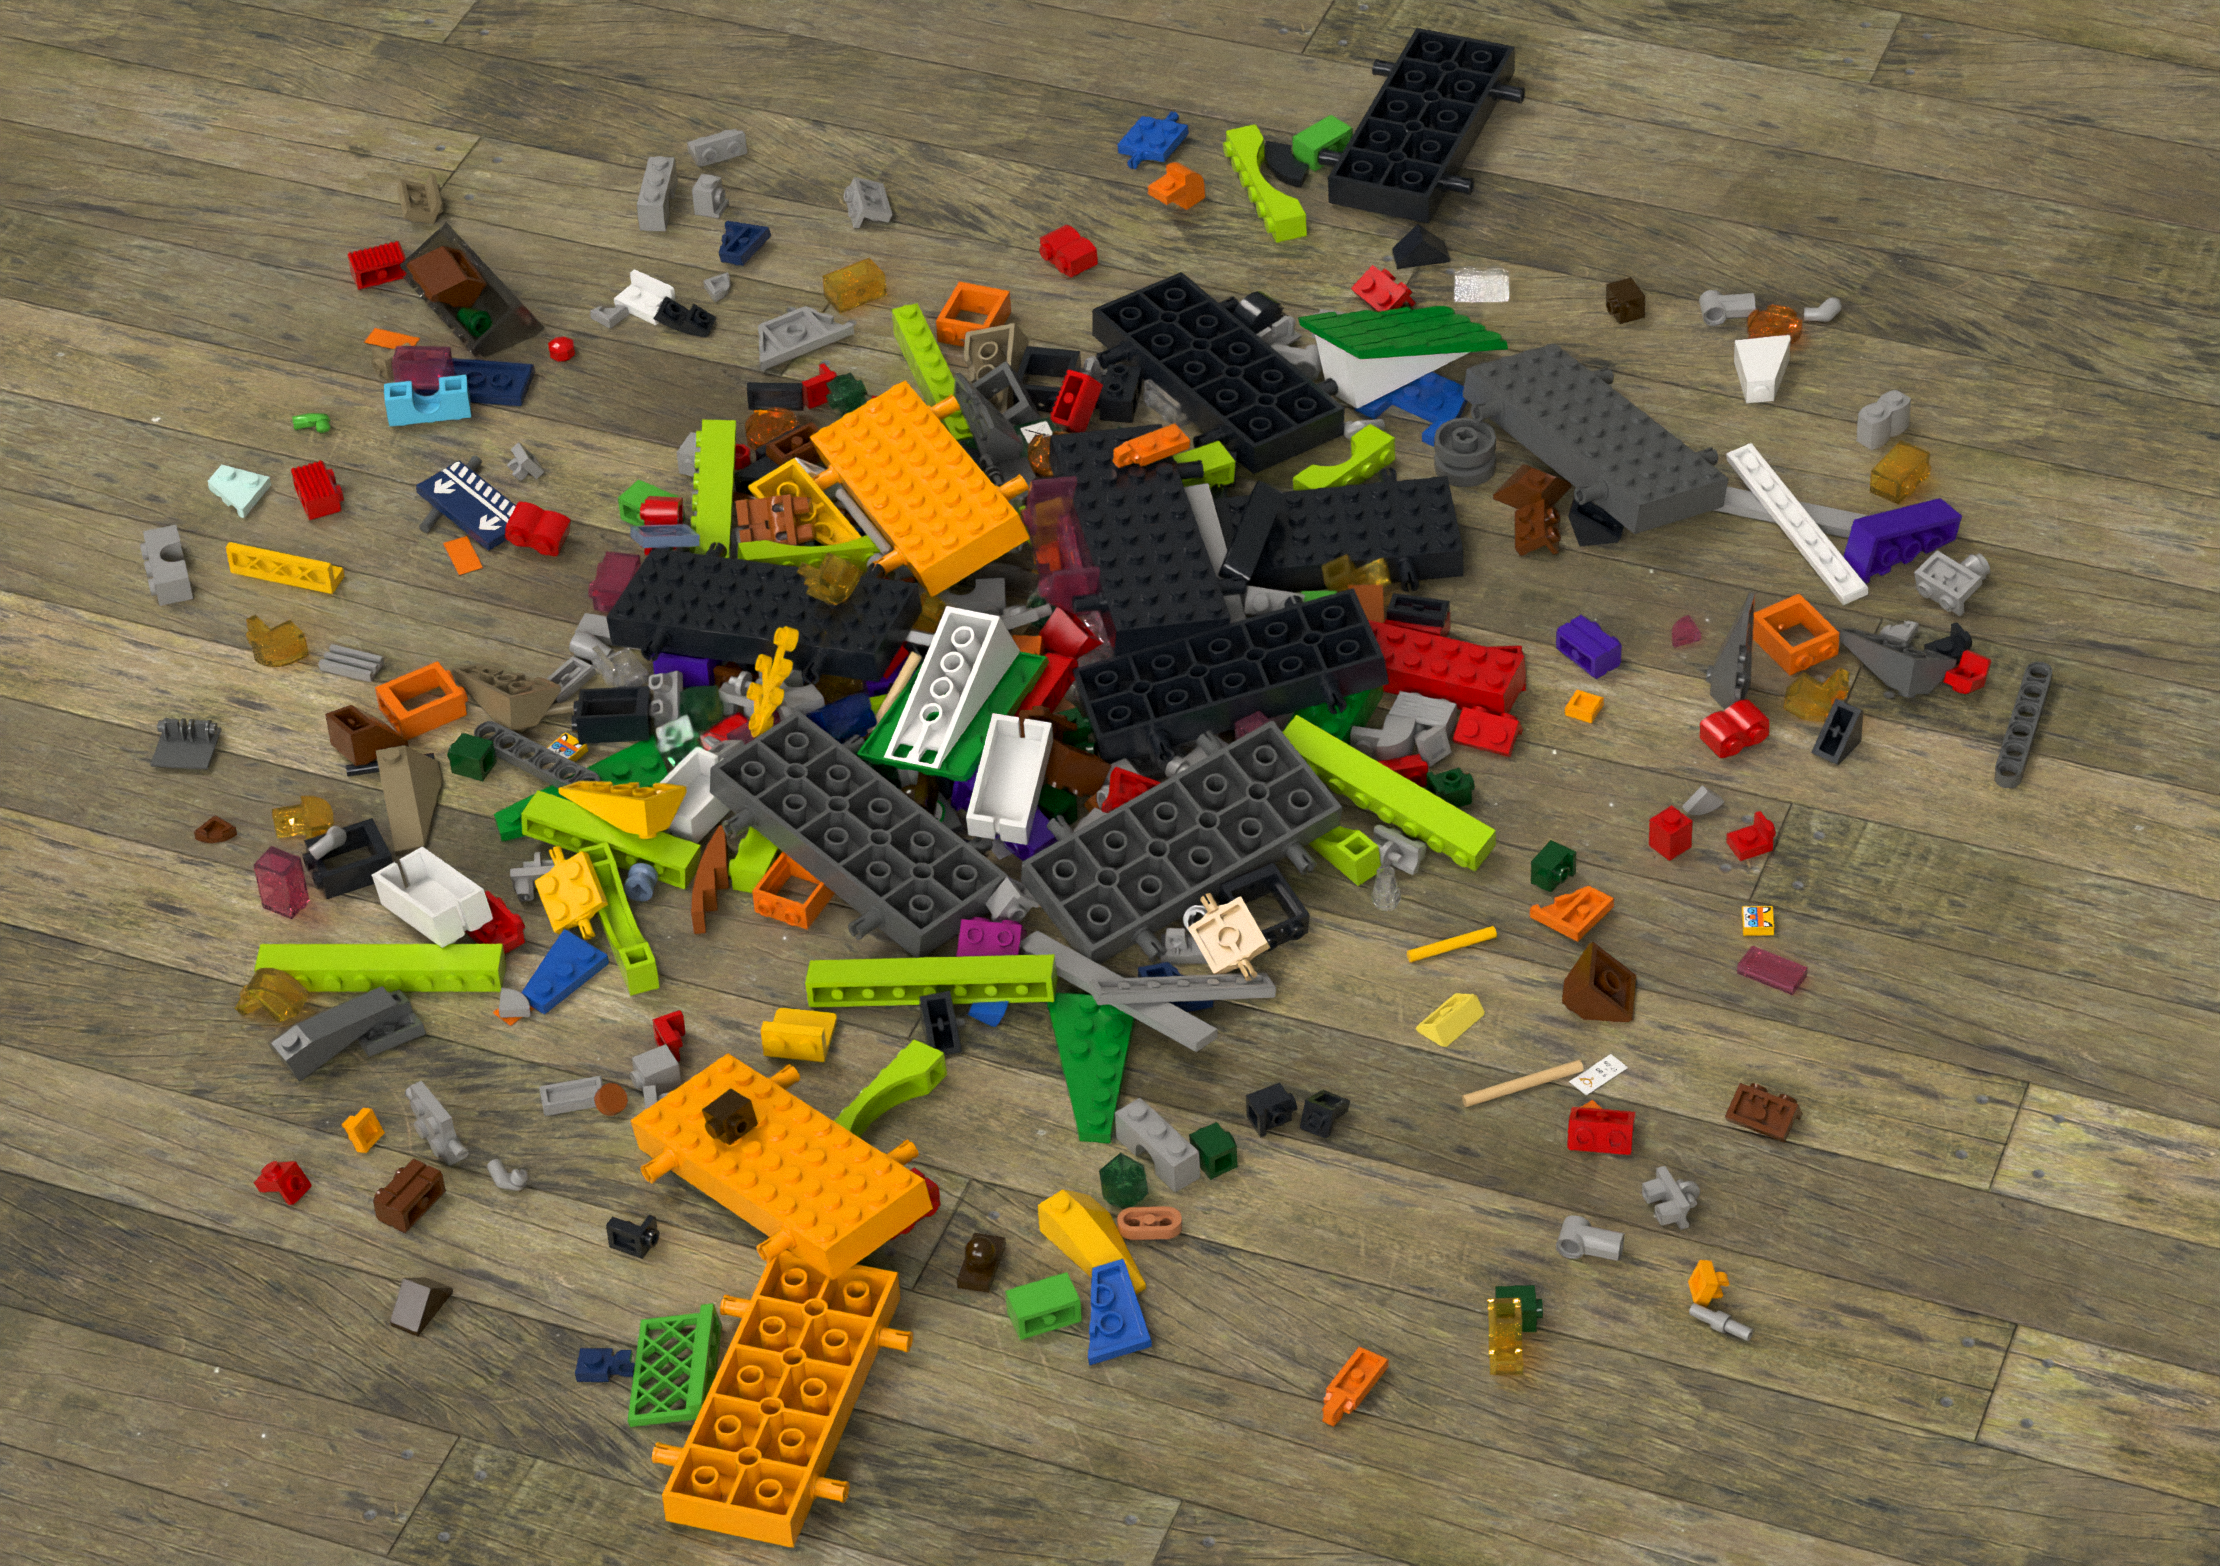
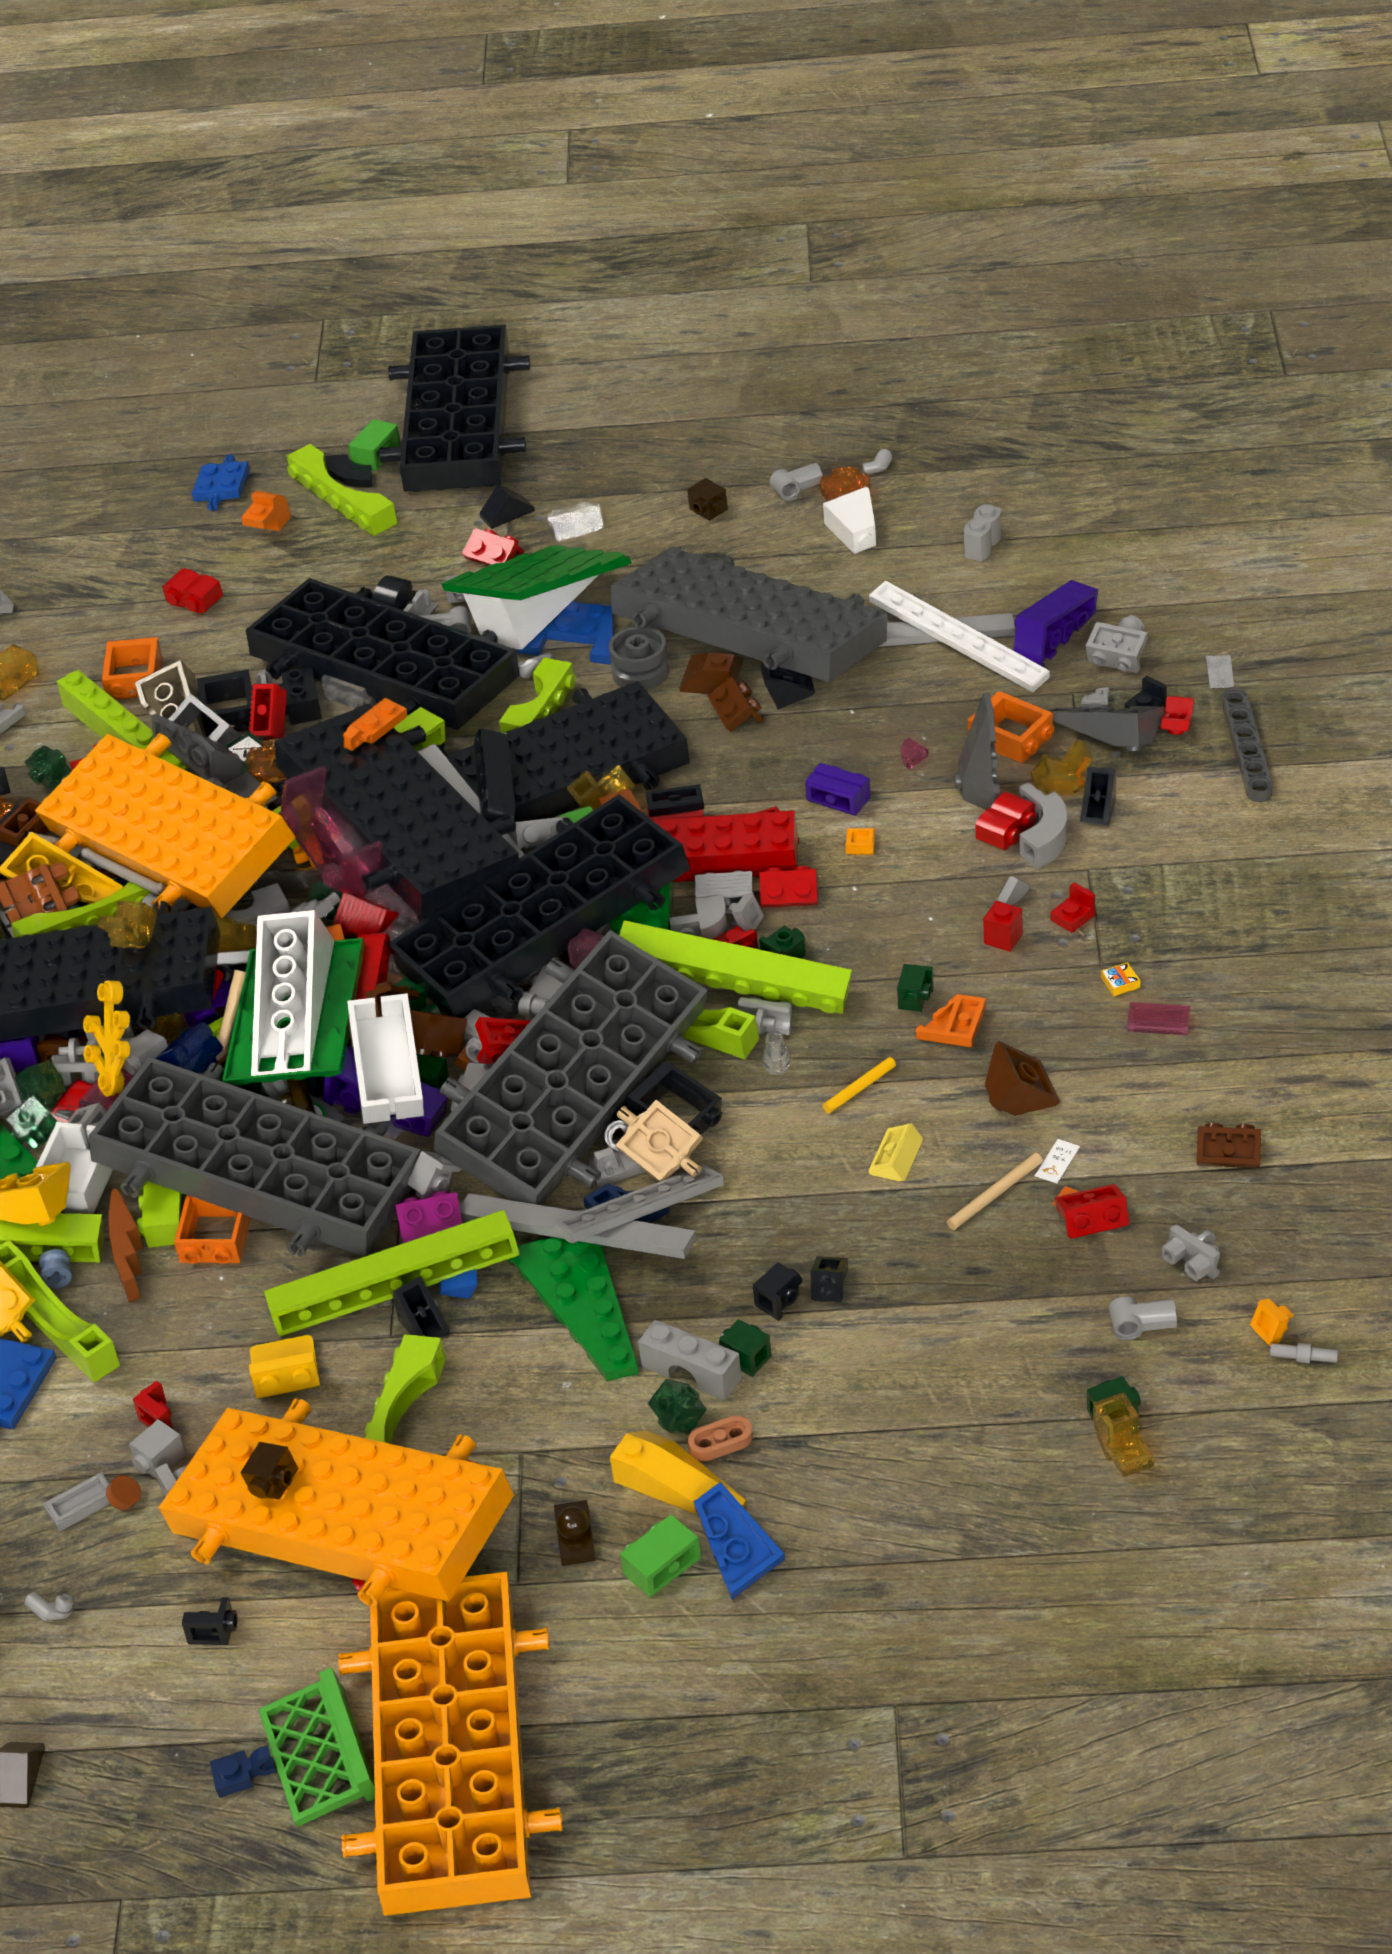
camera: 20 degrees left, 0 degrees up
(816, 388) = (15, 768): red bracket -> none
(1352, 1384) = (999, 1530): orange hinge -> none
(1774, 754) = (1048, 837): none -> light grey arch
(1900, 472) = (1021, 570): clear yellow brick -> none
(2045, 640) = (1220, 671): none -> clear sticker

